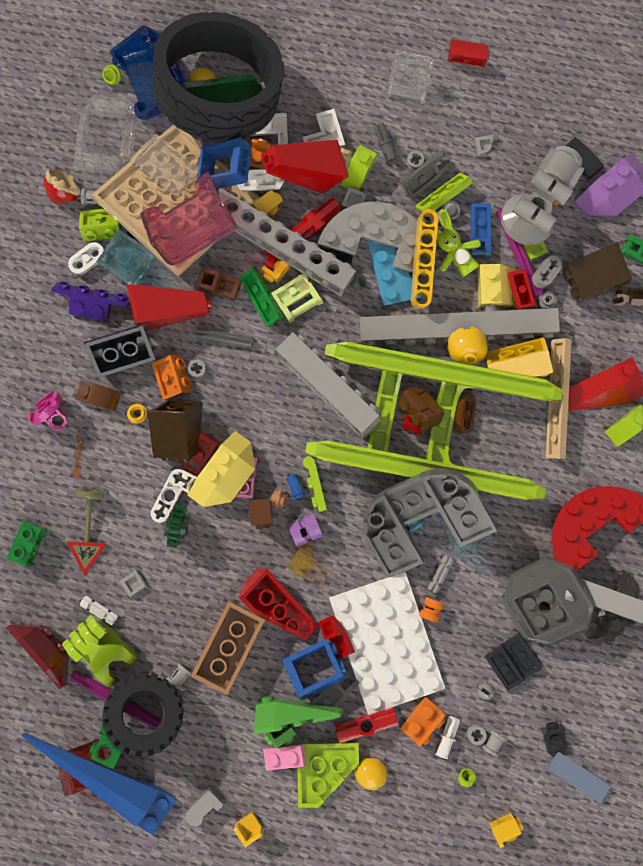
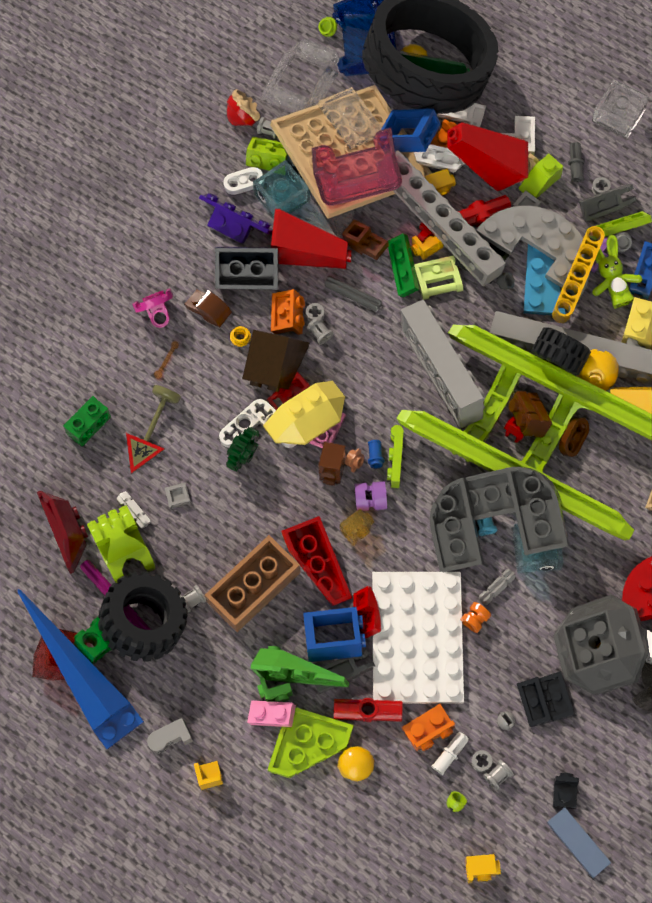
camera: 20 degrees right, 15 degrees down
(207, 385) = (317, 324): none -> light grey bush
(433, 344) = (561, 350): none -> black tyre

